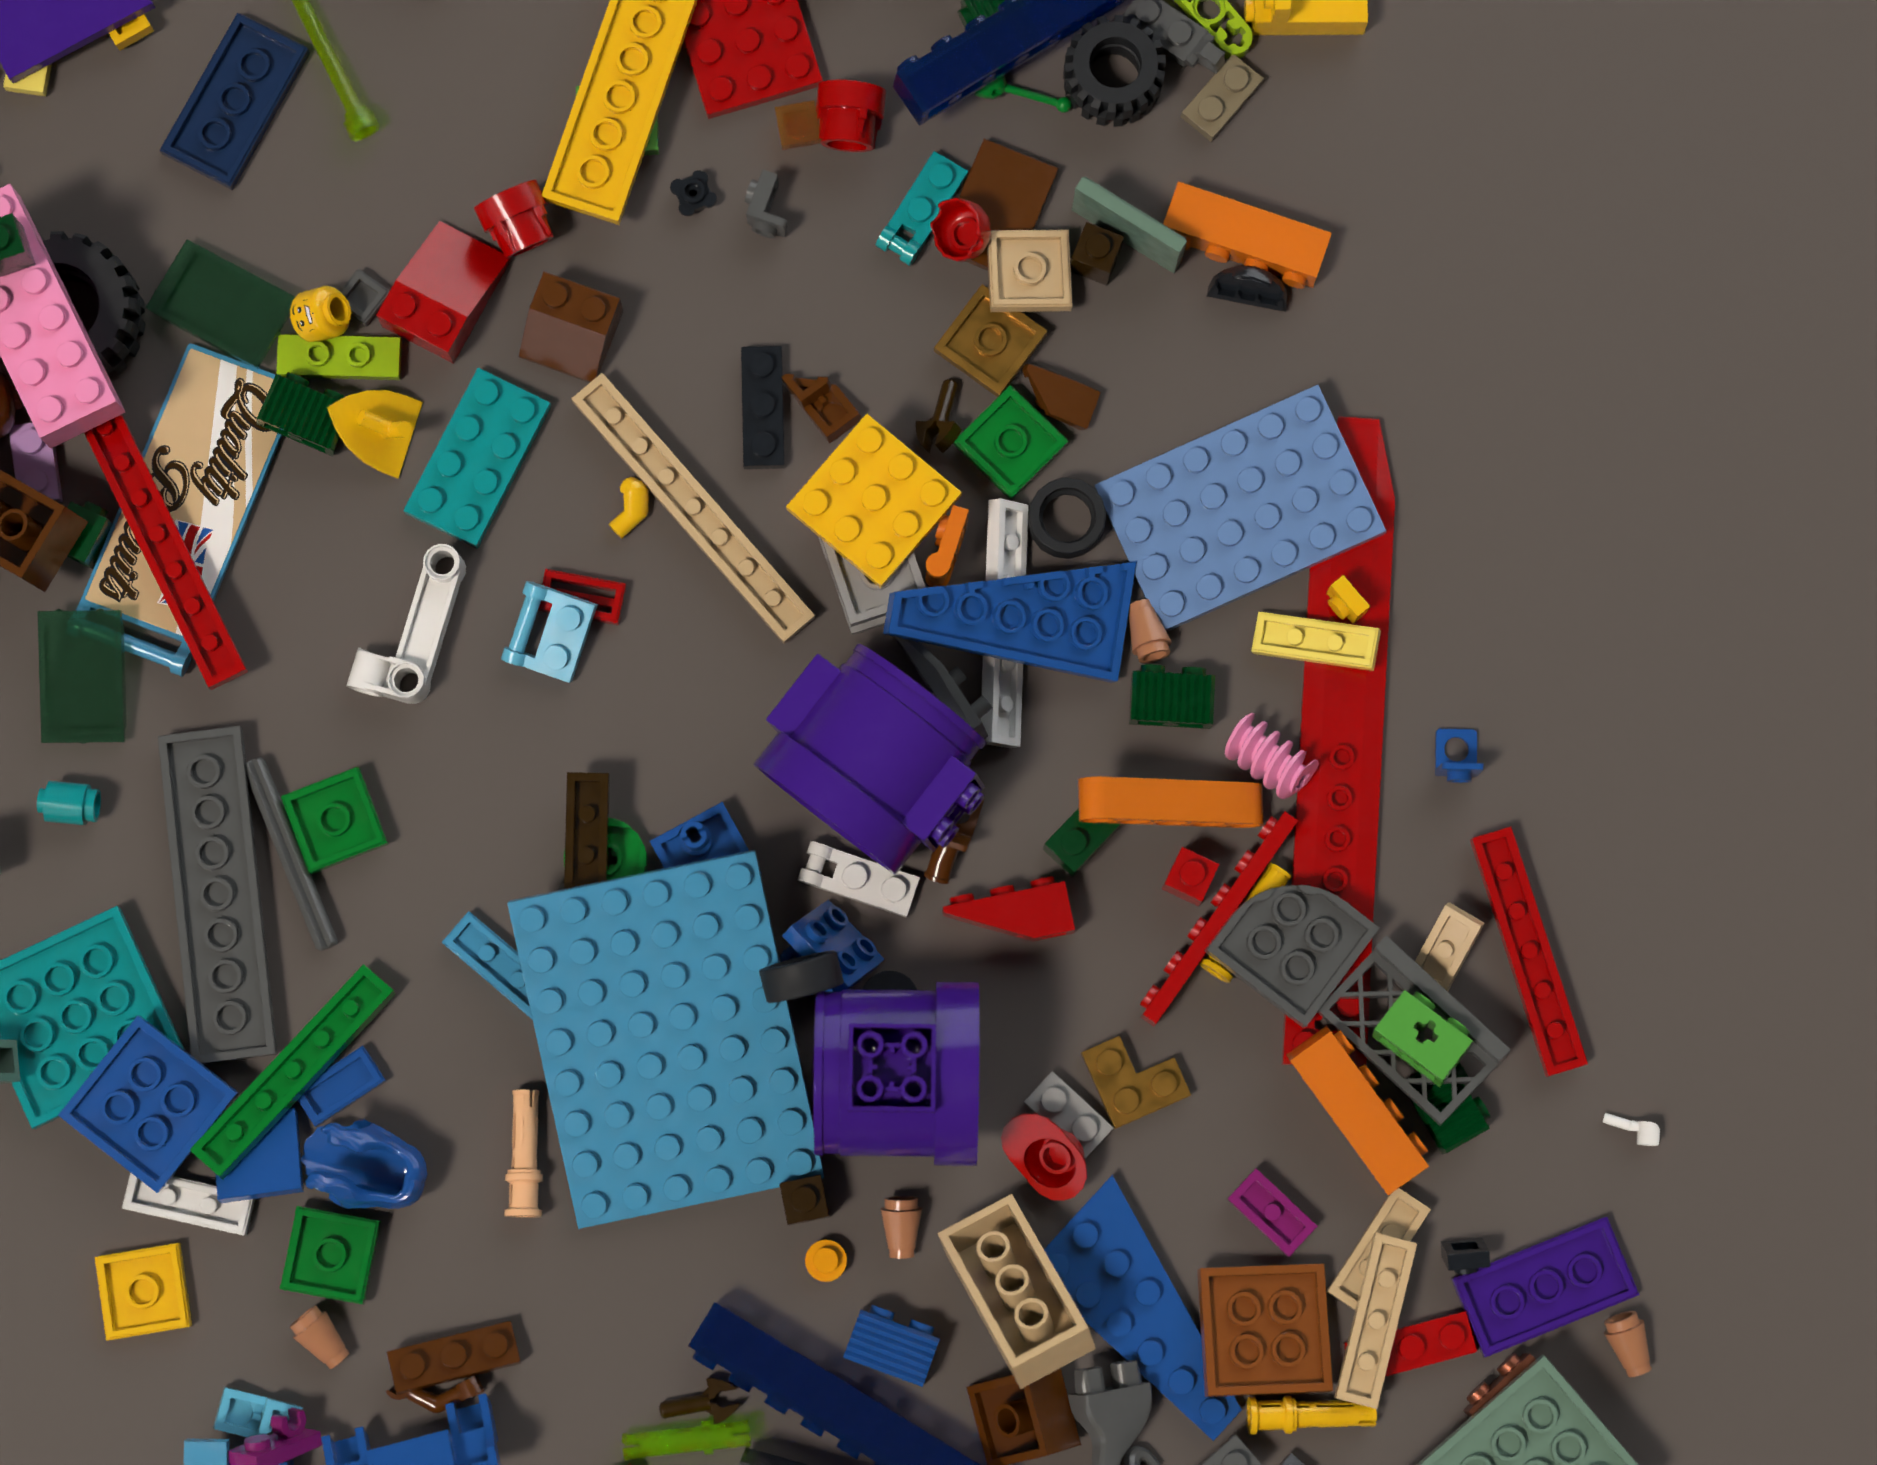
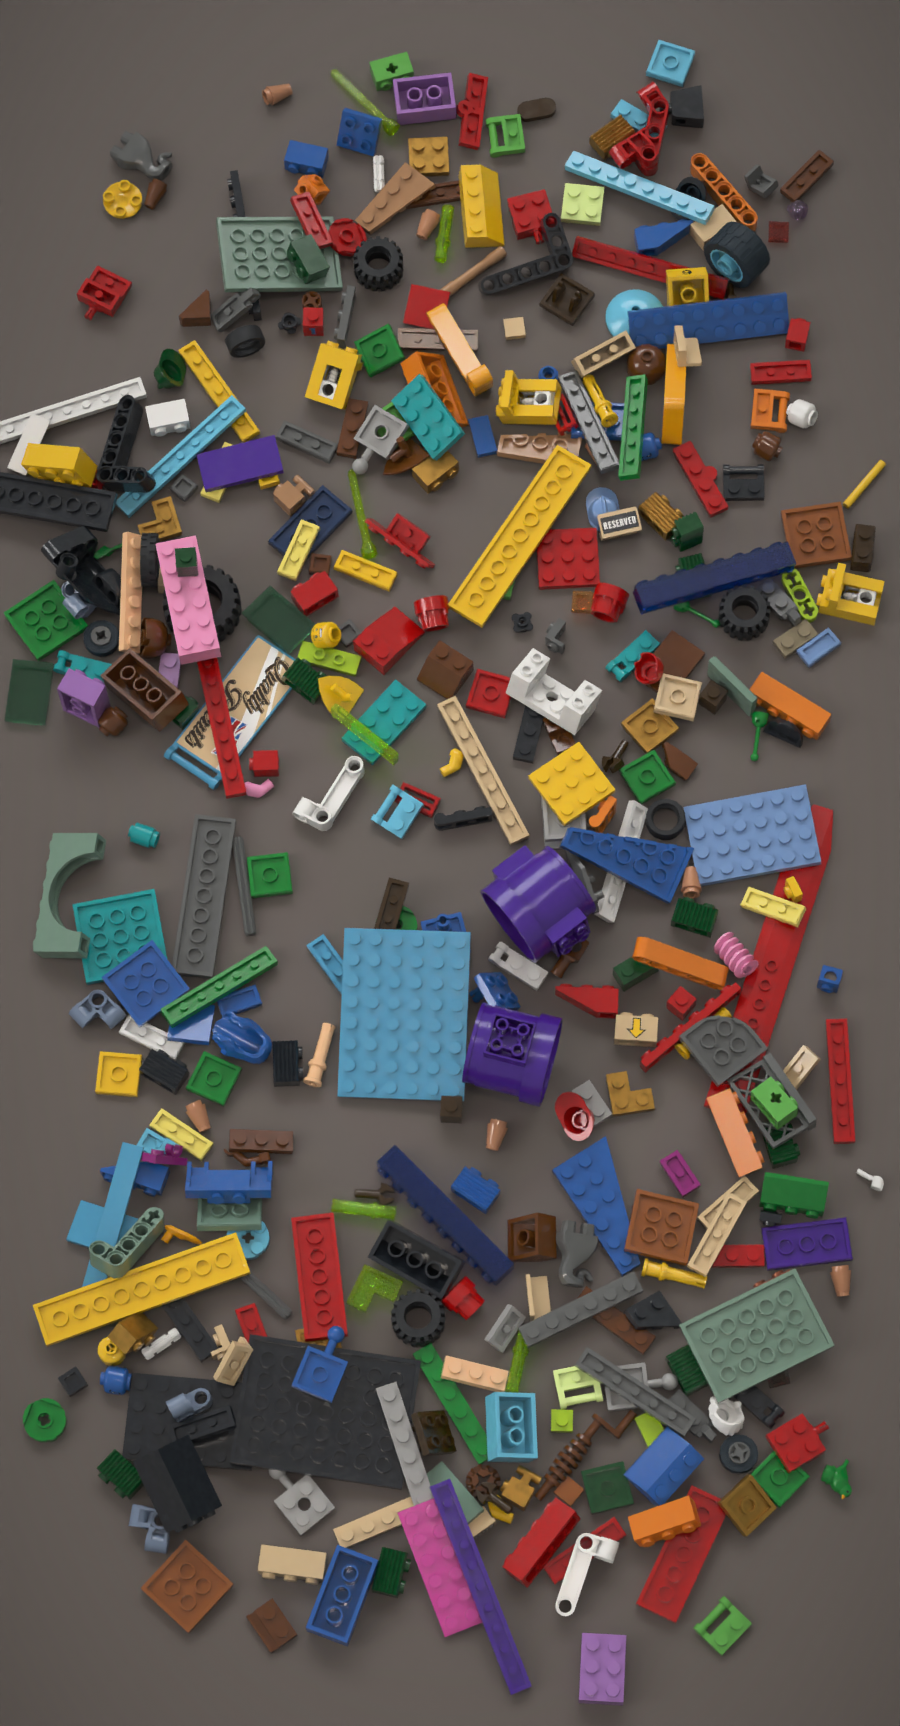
camera: 20 degrees right, 10 degrees down
(82, 676) = (165, 777): clear green piece -> none
(90, 1177) = (86, 1011): none -> sand blue piece
(181, 52) = (291, 497): none -> medium nougat brick
(223, 155) = (298, 550): none -> light yellow tile
(230, 1266) = (164, 1071): none -> black brick
(267, 656) = (256, 790): none -> bright pink arm
(268, 599) = (265, 763): none -> red brick
(273, 173) = (320, 563): none -> reddish brown tile
(276, 234) = (314, 593): none -> red brick
(296, 1381) = (181, 1134): none -> light yellow tile
(364, 163) = (365, 570): none -> yellow tile
(425, 77) = (404, 535): none -> red bracket
(446, 495) = (364, 734): none -> clear neon green tile
(464, 1189) = (286, 1063): none -> black brick
(669, 349) = (489, 694): none -> red tile
(678, 614) = (462, 818): none -> black plate
(745, 318) = (533, 686): none -> white plate
(801, 976) = (477, 994): black tyre -> none
(826, 1260) = (454, 1141): light orange plate -> none
(1016, 1291) = (543, 1173): tan brick -> none
(1117, 950) = (636, 1030): none -> tan brick
(1196, 277) = (759, 720): none -> green hinge
(1270, 104) = (818, 647): none -> medium blue tile
(1500, 1205) = (793, 1195): none -> green slope

